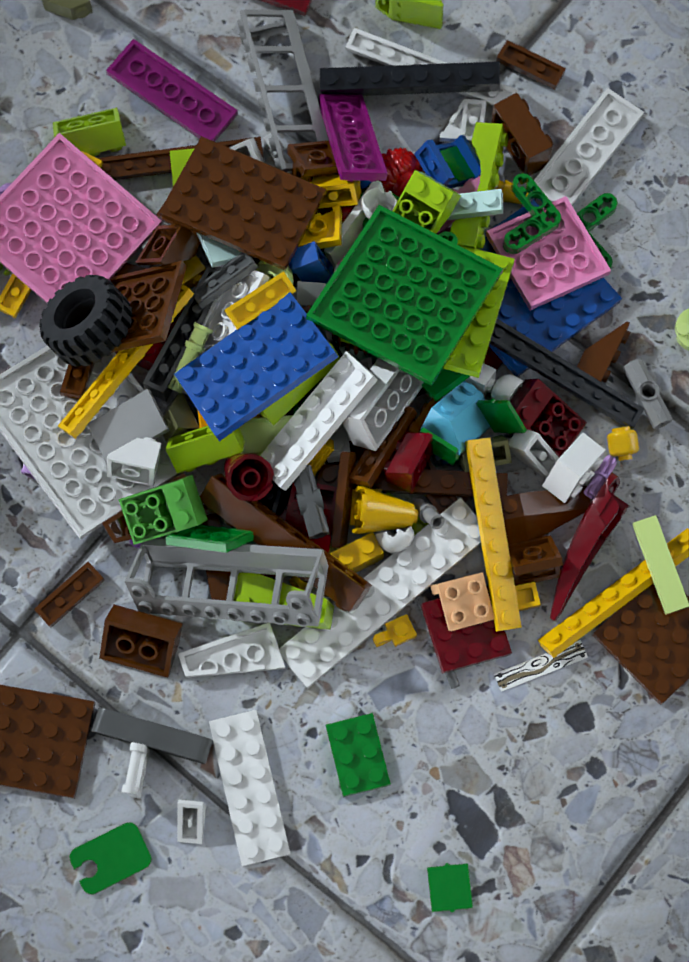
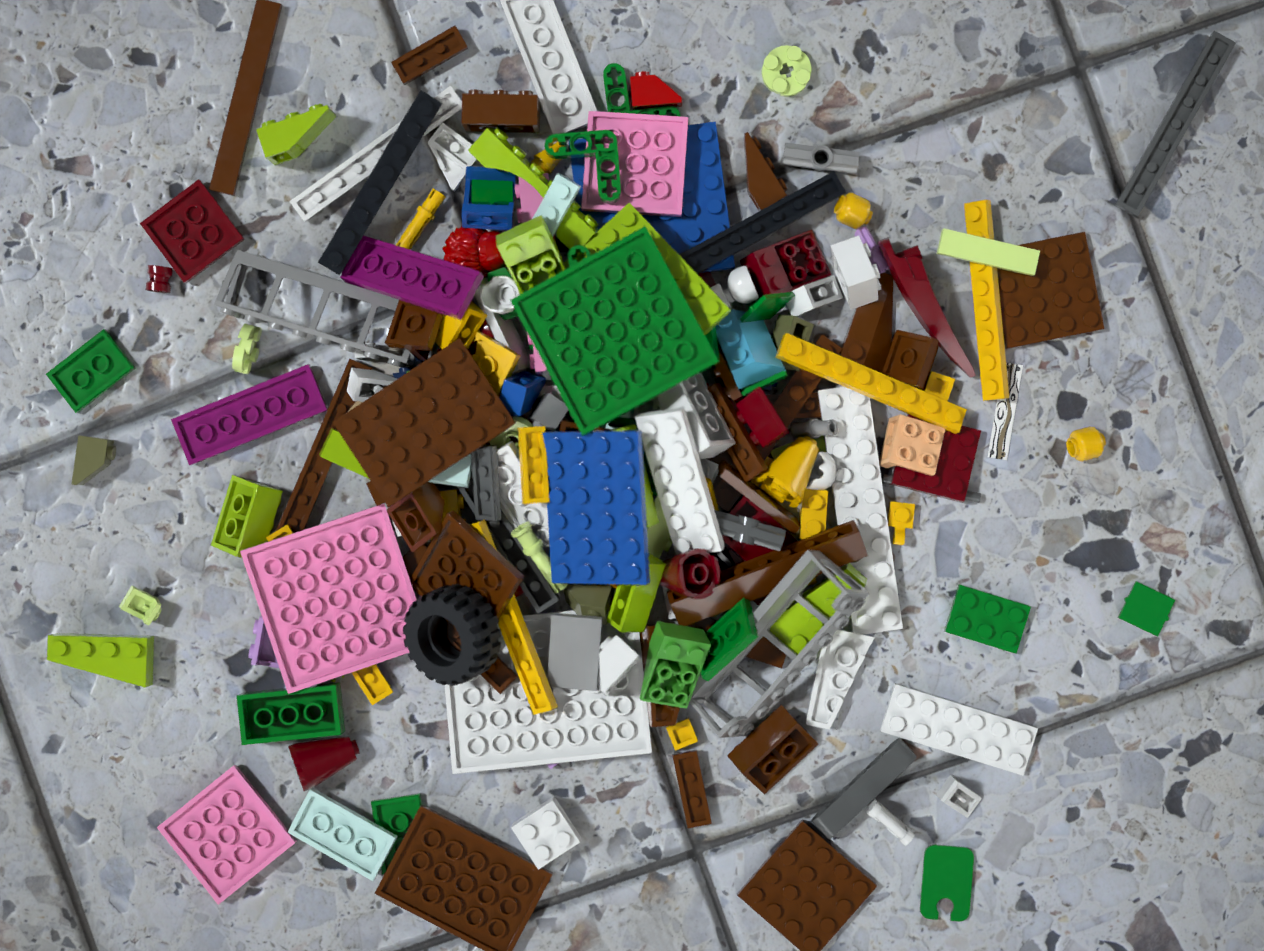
camera: 60 degrees left, 15 degrees up
(111, 559) = (682, 734): none -> yellow plate
(221, 58) = (246, 351): none -> yellowish green plate
(402, 129) = (422, 218): none -> yellow pin
(556, 746) = (1085, 443): none -> yellow head
(611, 235) = (652, 92): none -> red slope

